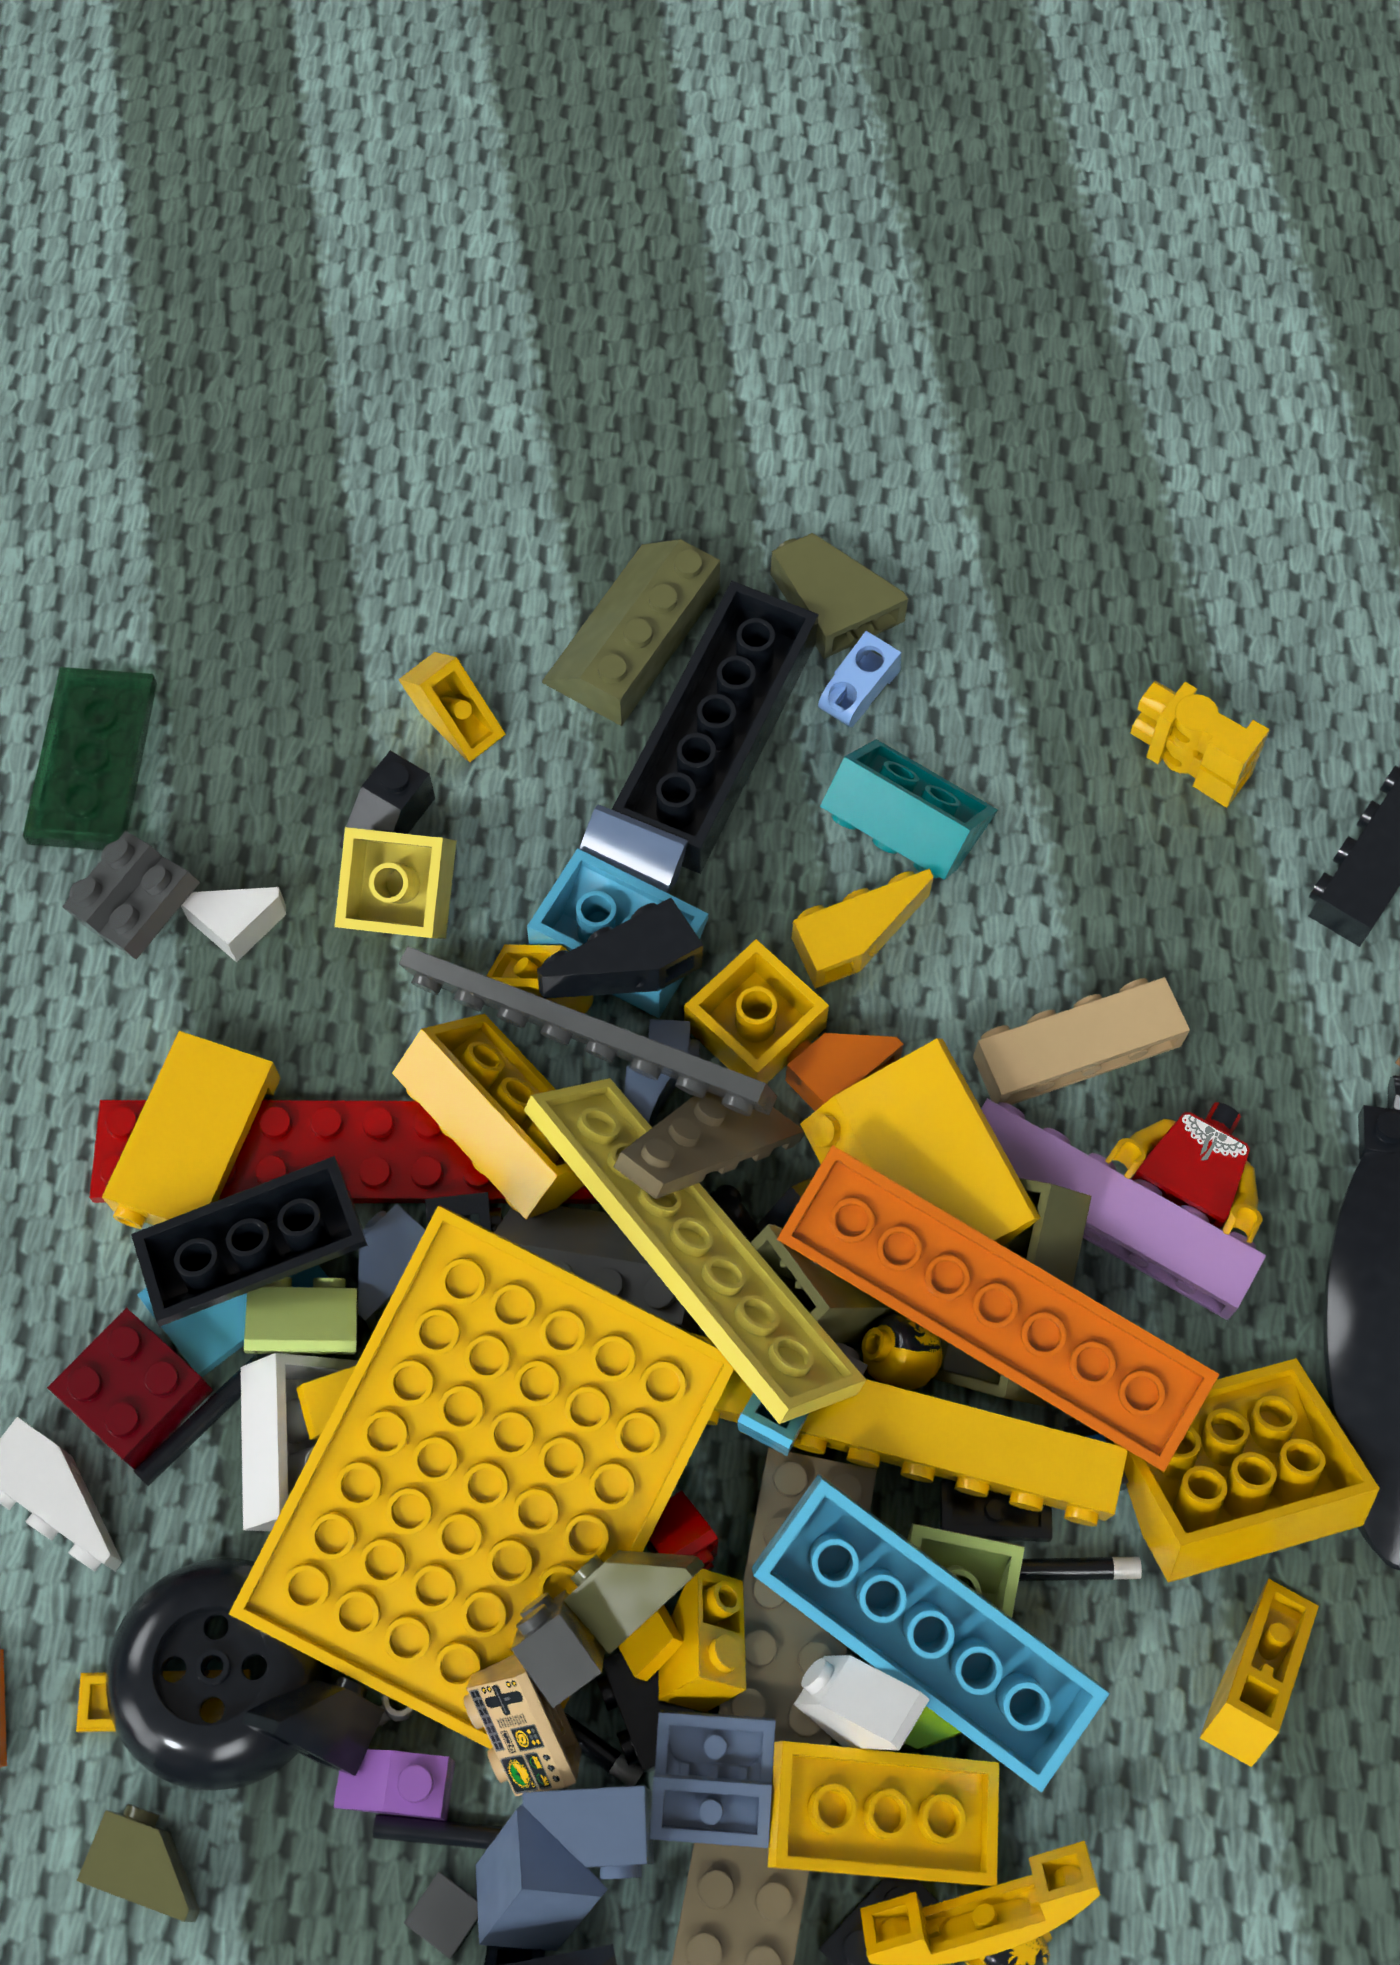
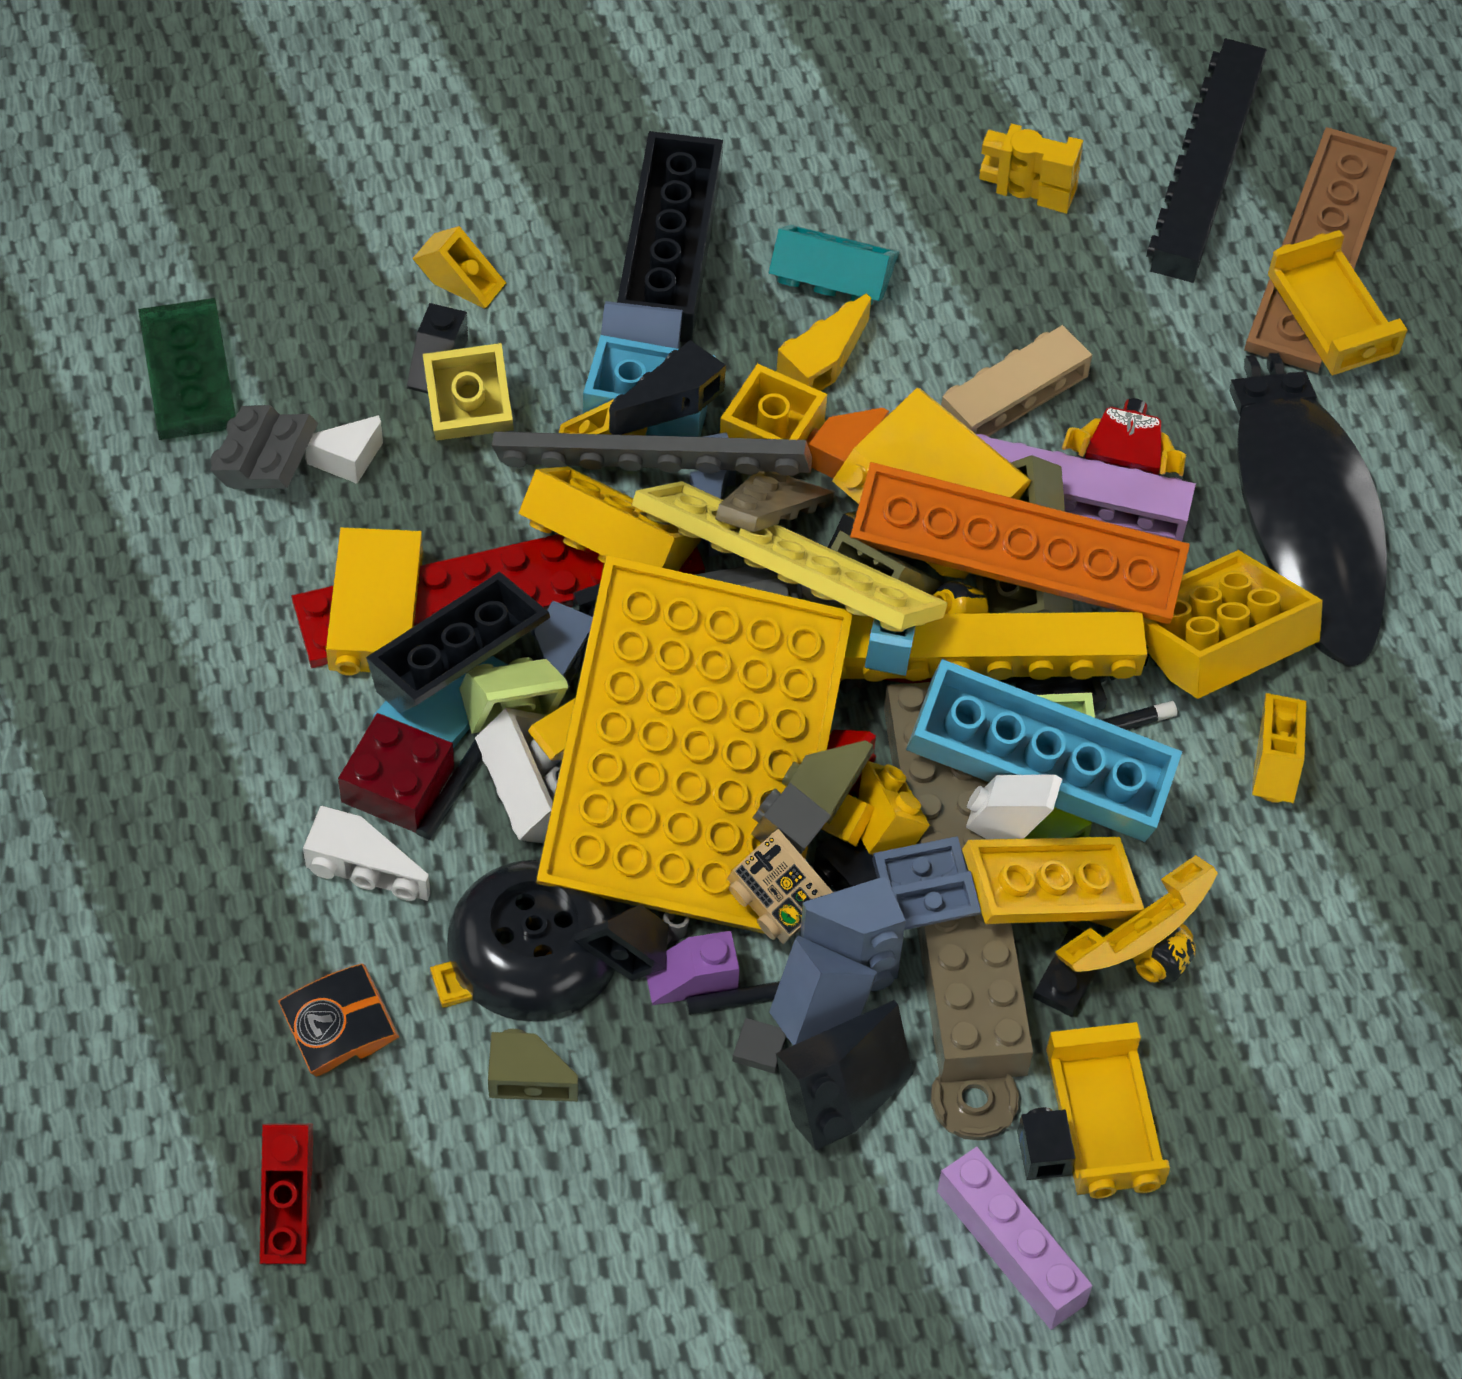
camera: 20 degrees left, 10 degrees down
(636, 628) = (581, 185): olive slope -> none
(838, 589) = (745, 129): olive slope -> none
(860, 679) = (766, 183): light blue leg -> none

